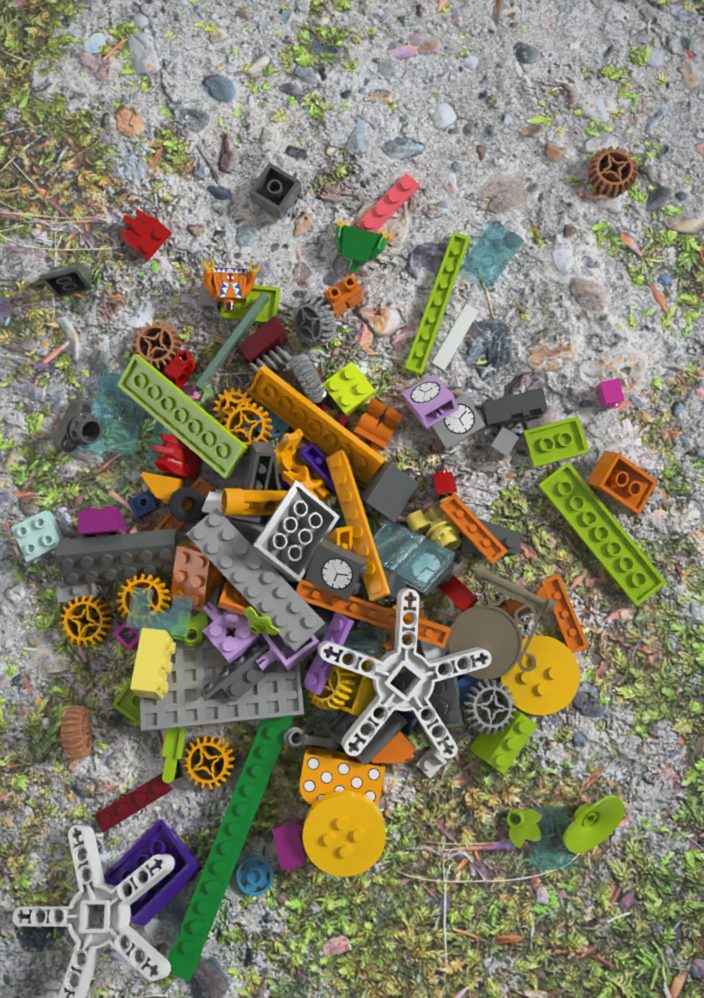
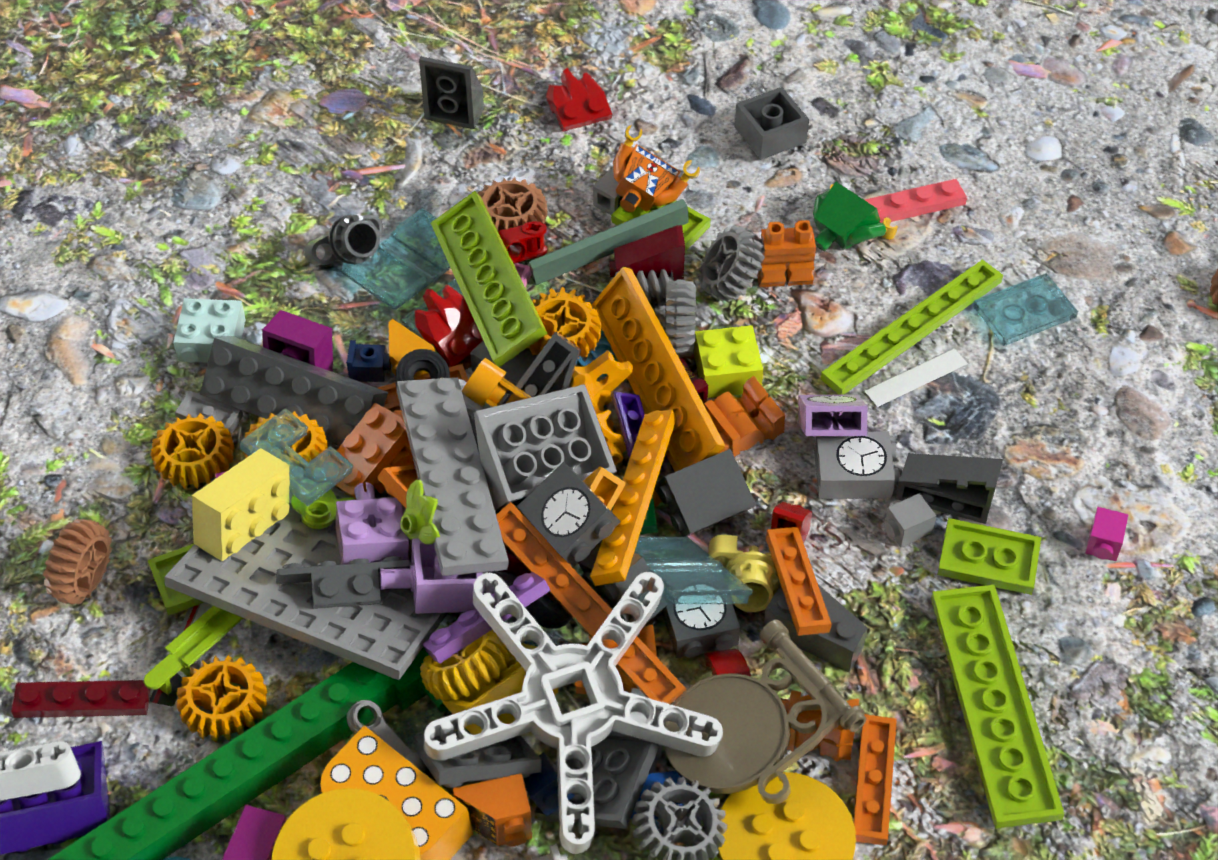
camera: 25 degrees right, 30 degrees down
(622, 481) = (1065, 650): orange slope -> none

